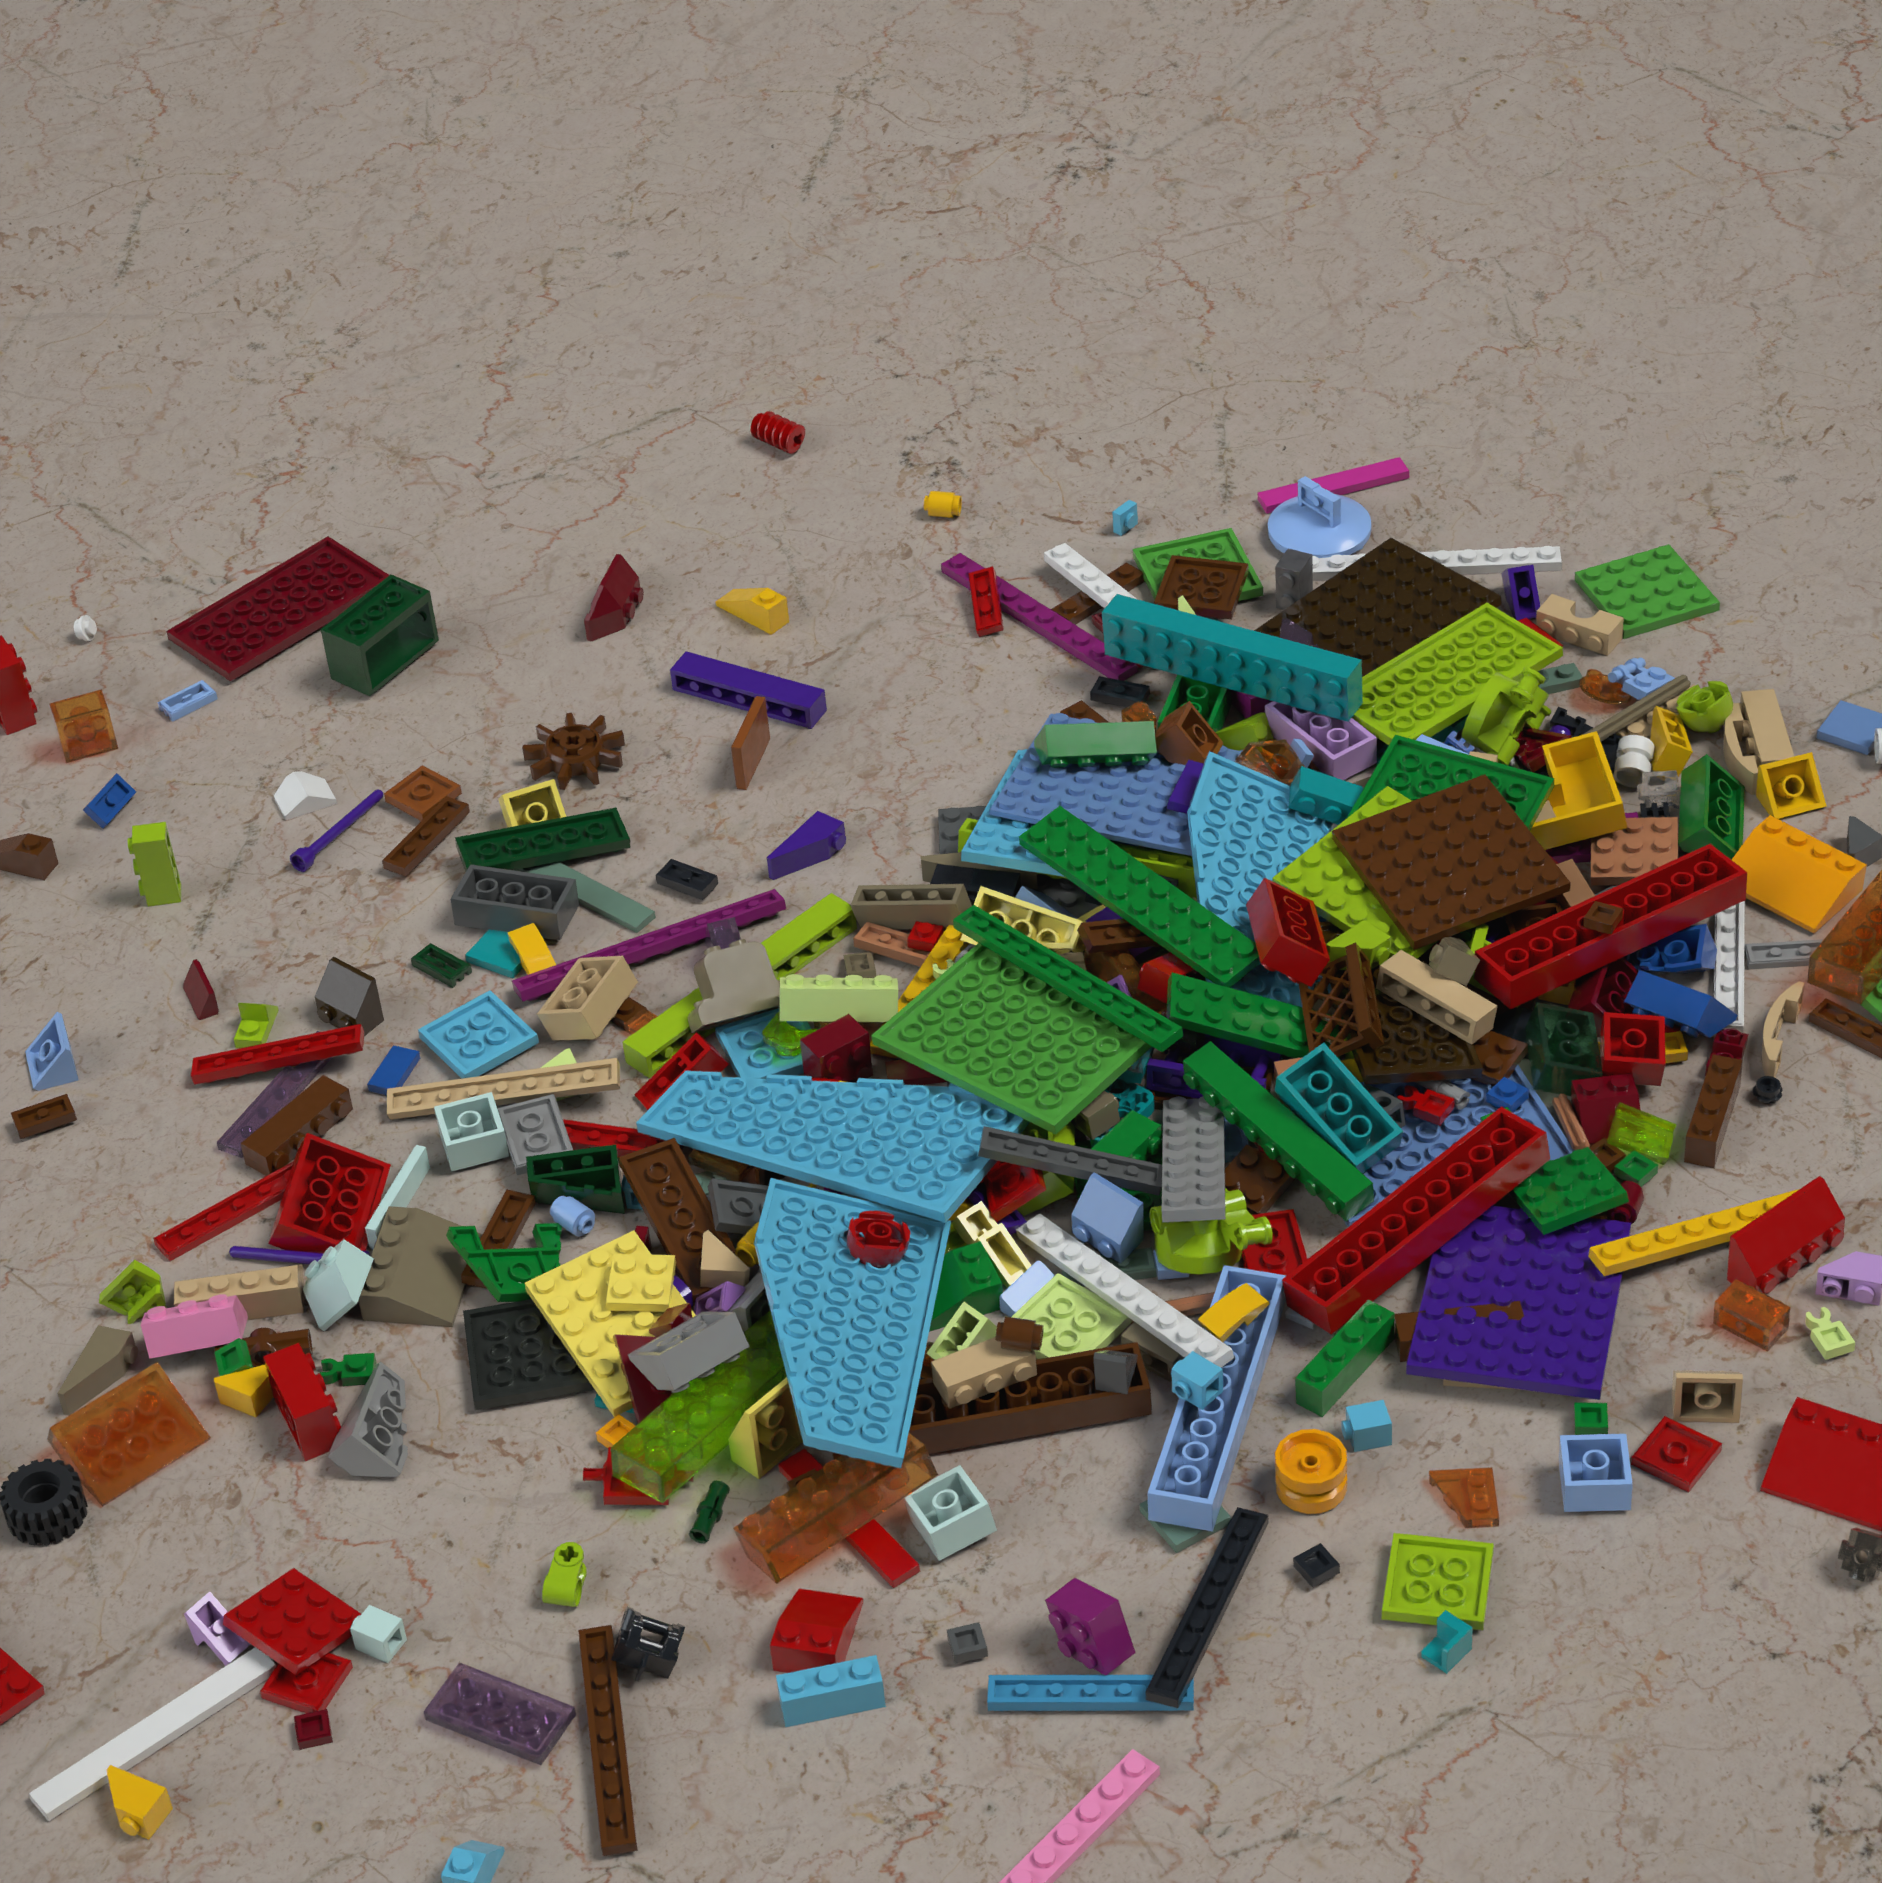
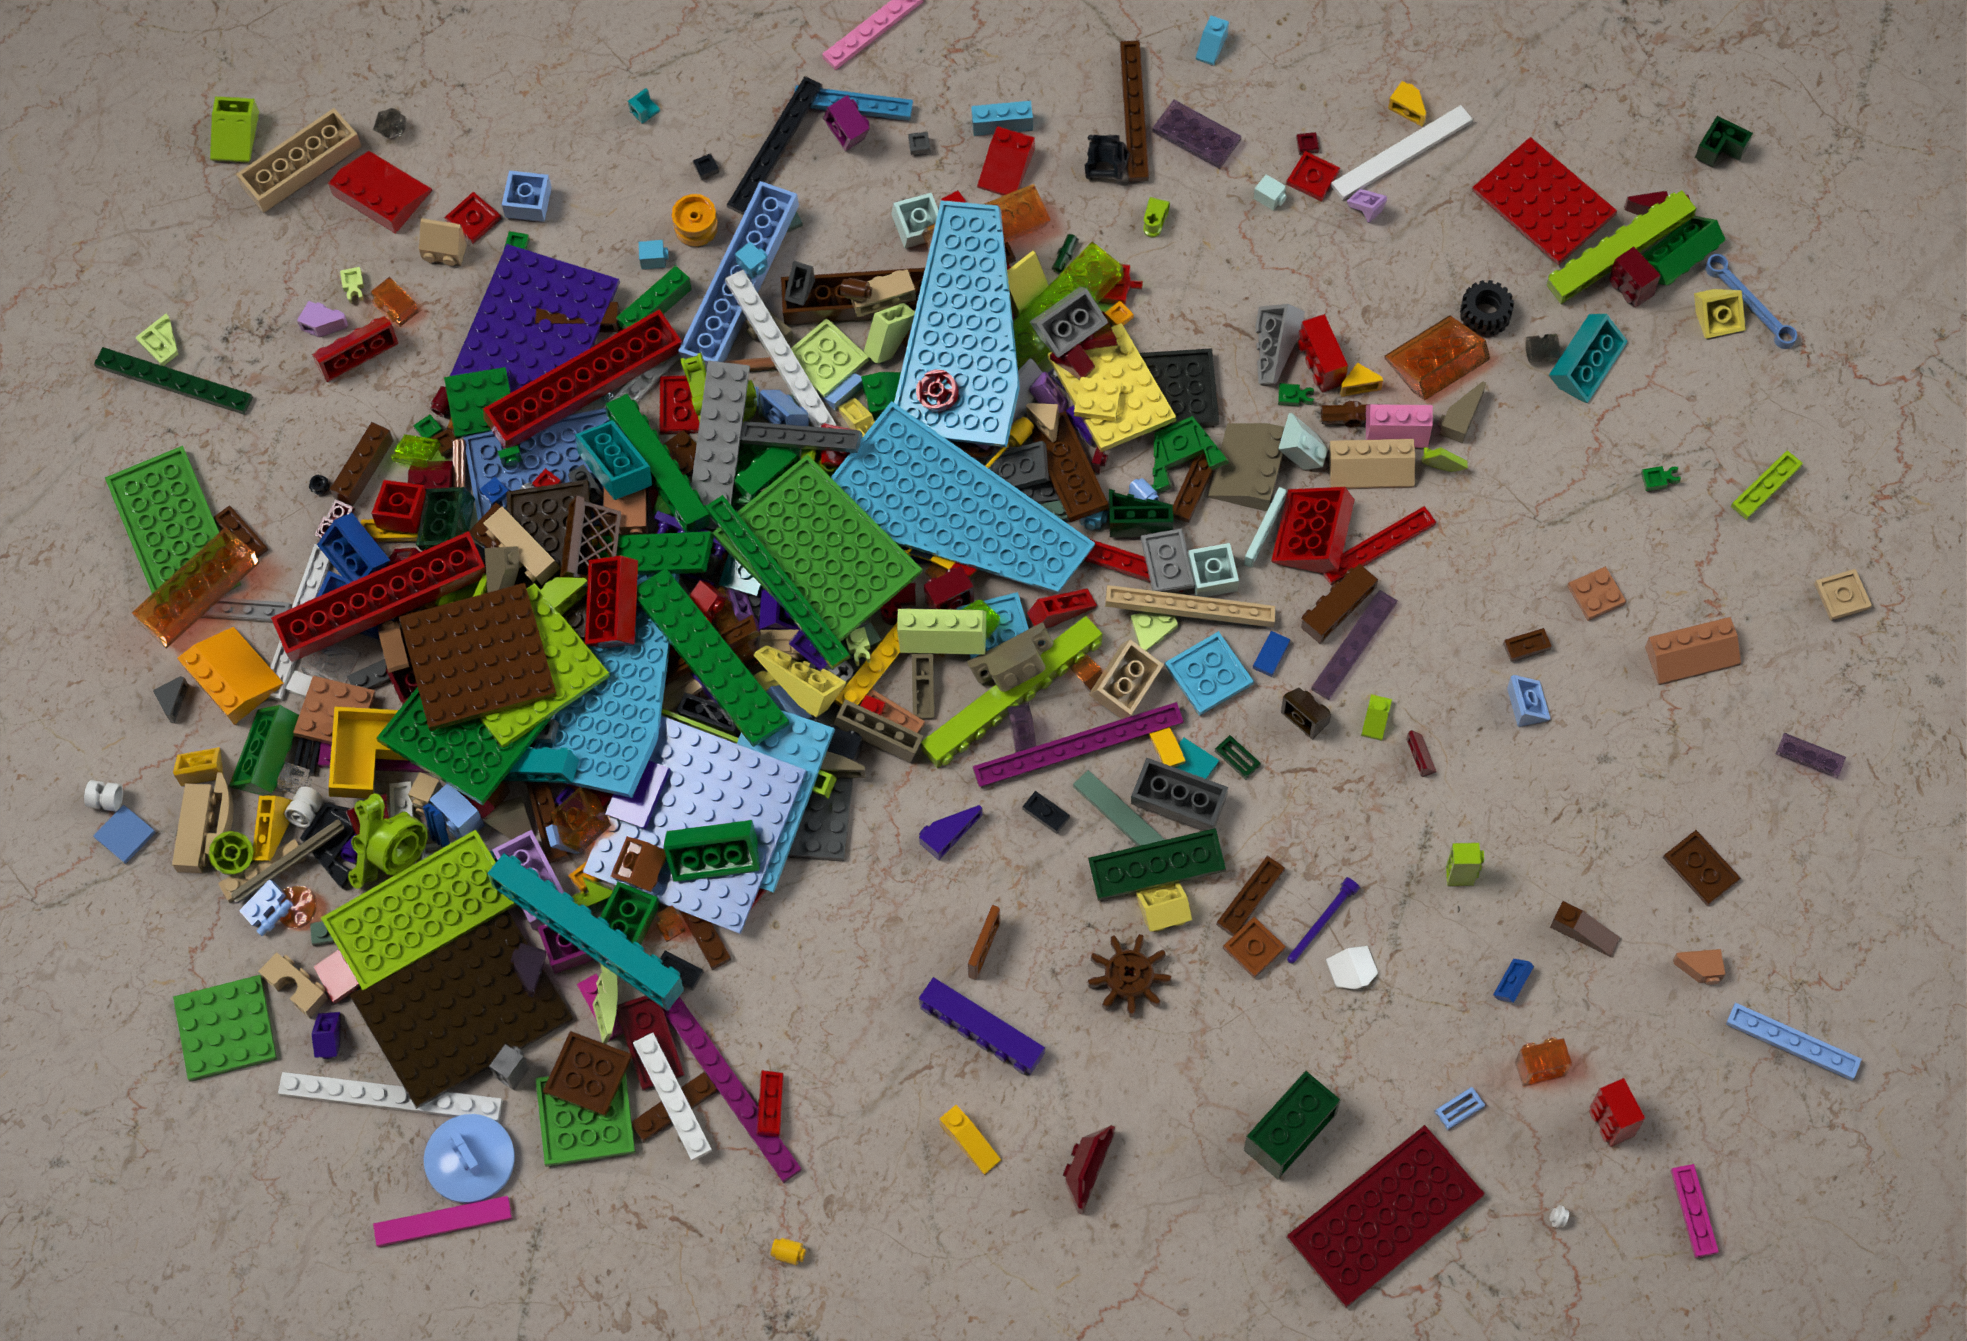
camera: 175 degrees left, 25 degrees up
(233, 1357) = (1370, 392): green plate -> none
(275, 1255) = (1293, 478): dark purple piece -> none
(277, 1054) = (1356, 667): red plate -> none
(293, 1621) = (1320, 202): red plate -> none
(1125, 517) = (631, 1199): medium azure plate -> none
(1232, 1310) = (715, 312): yellow slope -> none
(1437, 1576) = (638, 147): lime plate -> none
(1469, 1494) = (603, 206): clear orange wing -> none
(1603, 917) = (387, 573): reddish brown plate -> none
(1678, 1237) = (400, 365): yellow plate -> none
(1783, 1009) = (277, 553): tan slope -> none

